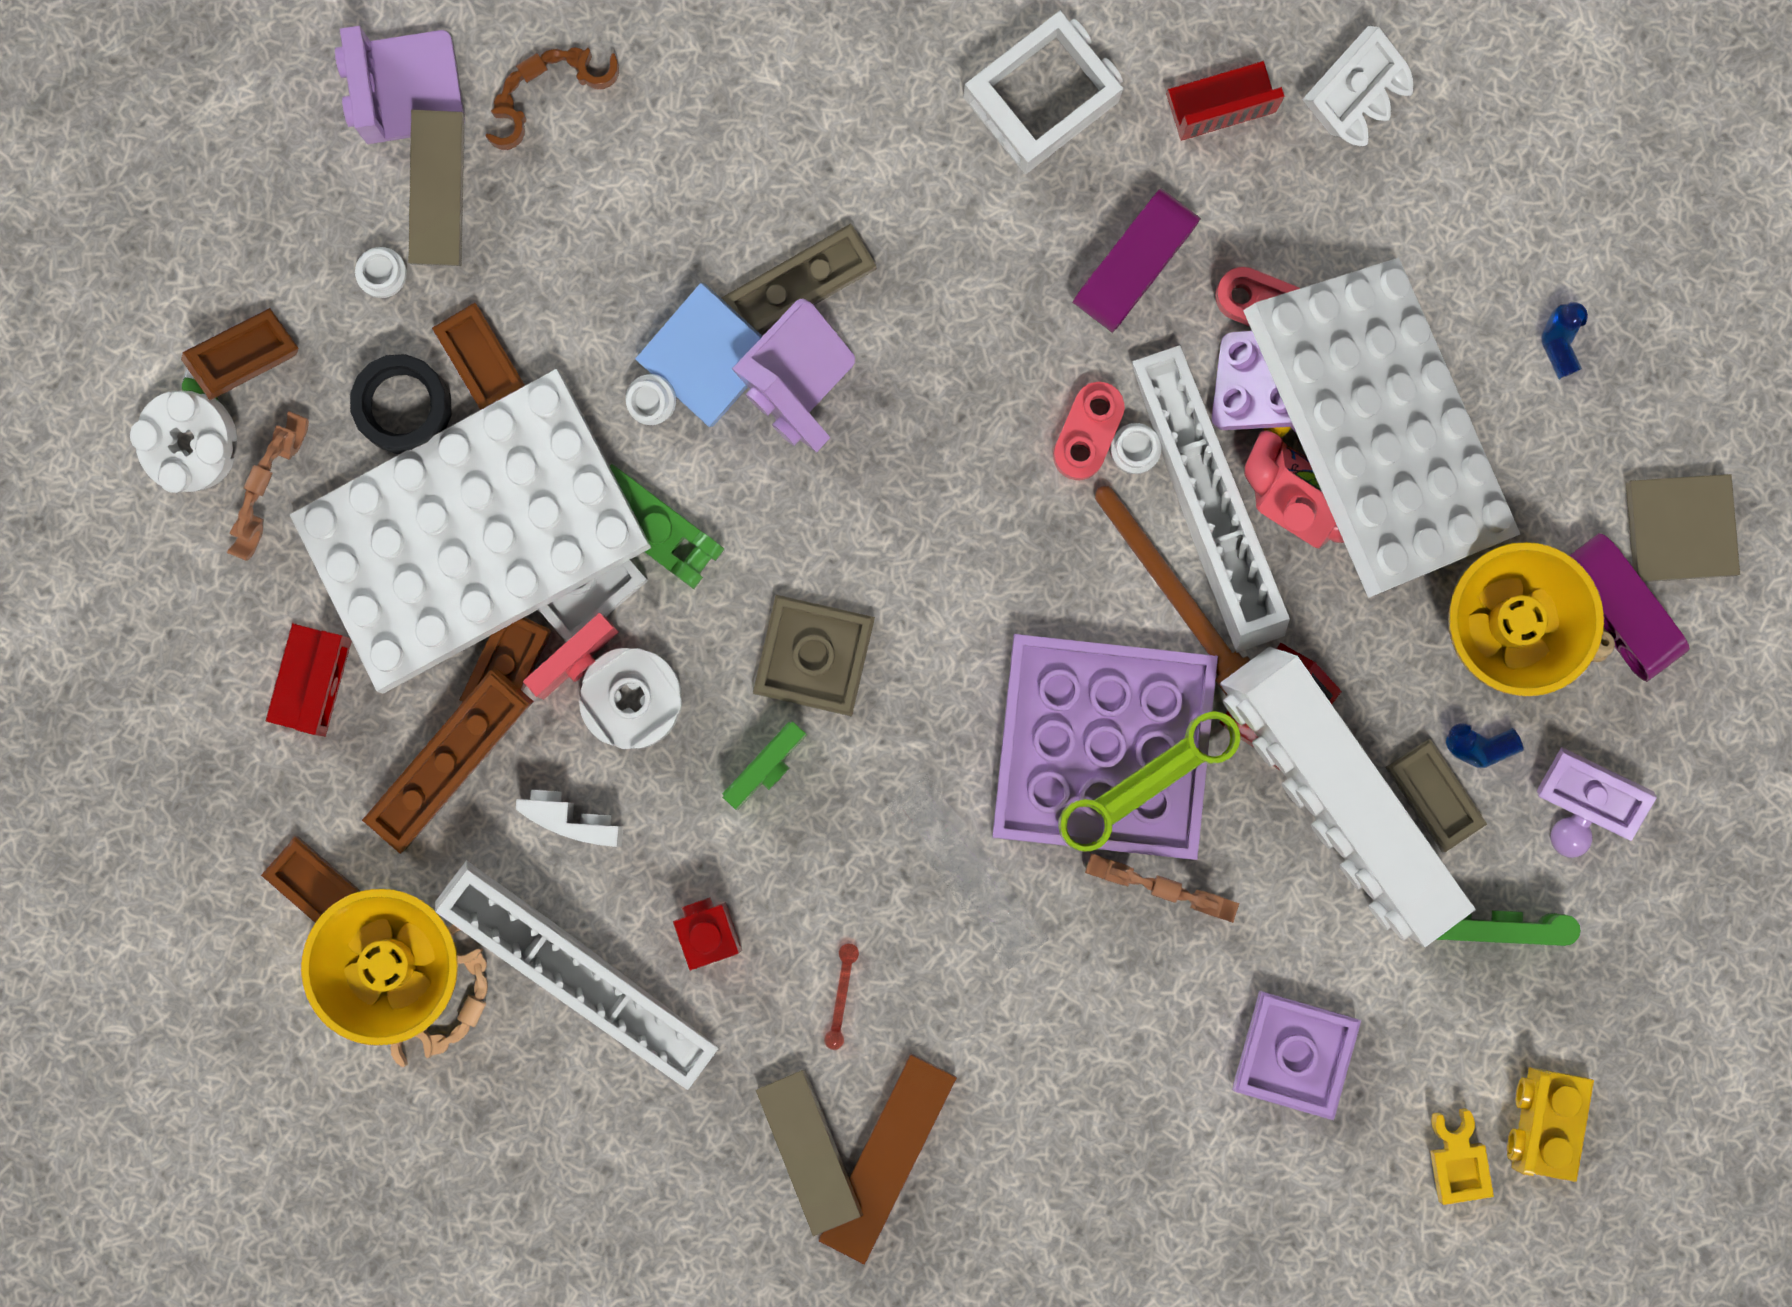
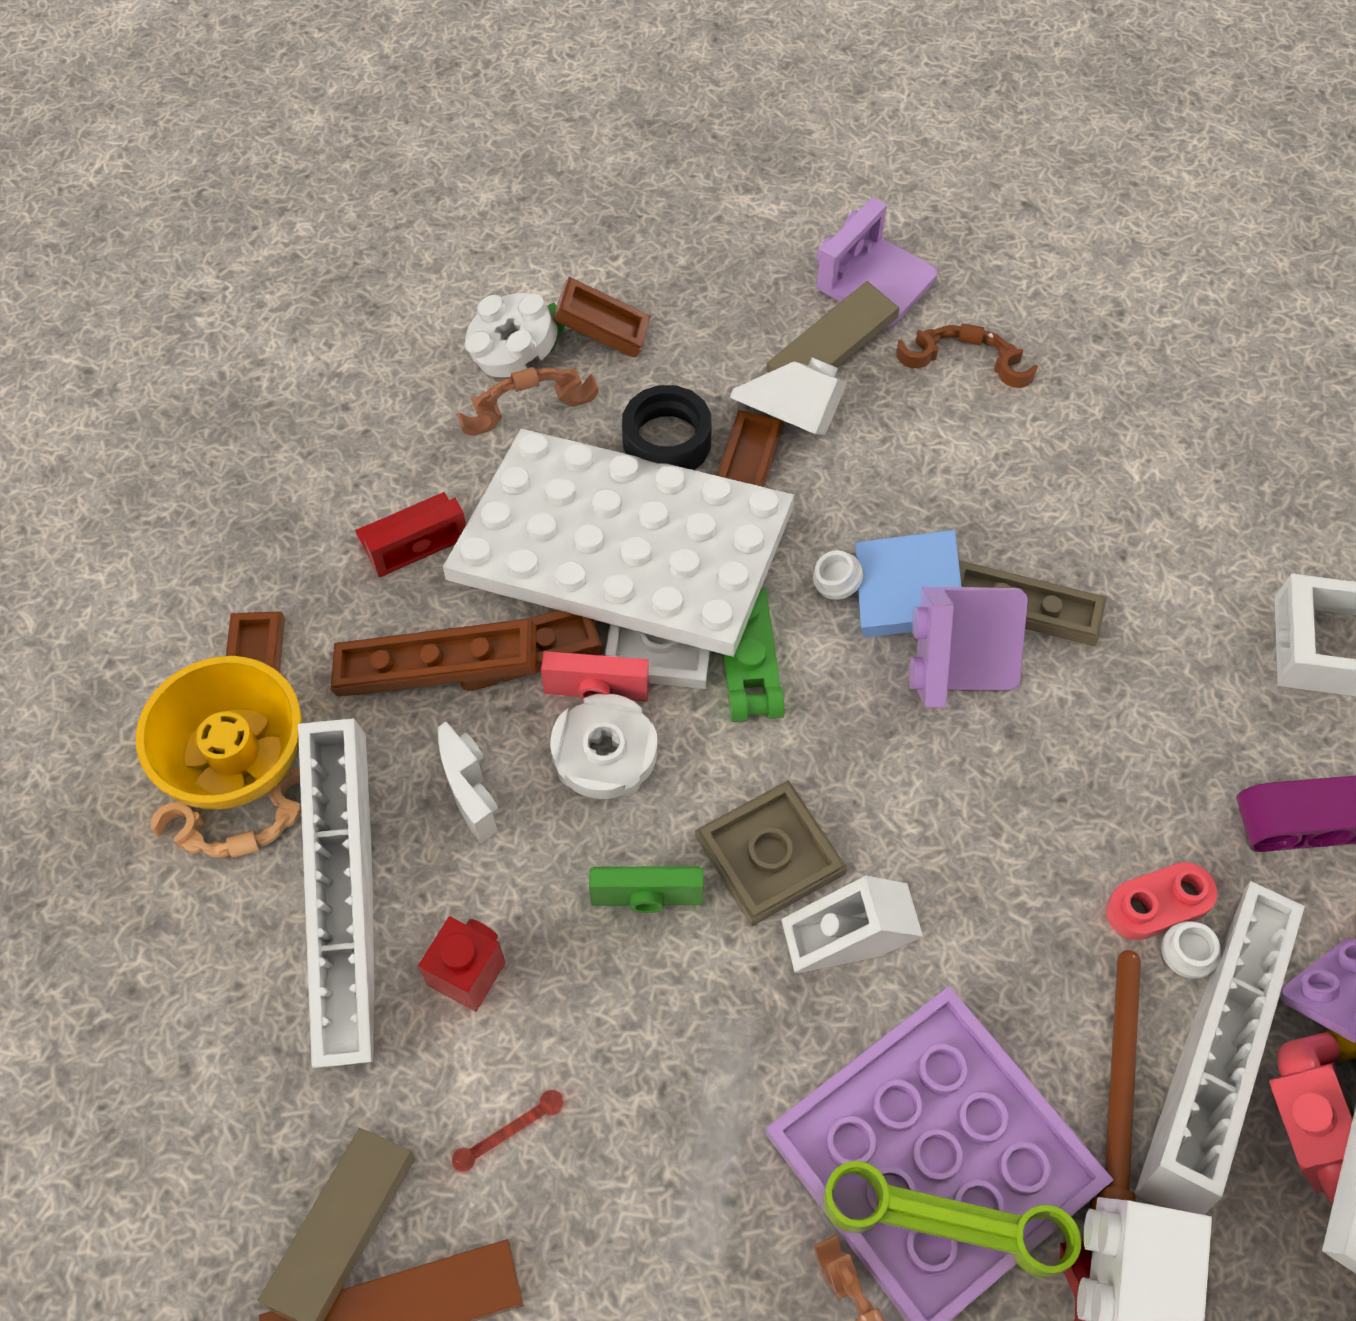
camera: 50 degrees right, 25 degrees down
(380, 272) = (742, 354): white plate -> none
(465, 279) = (796, 394): none -> white slope
(917, 655) = (852, 924): none -> white slope

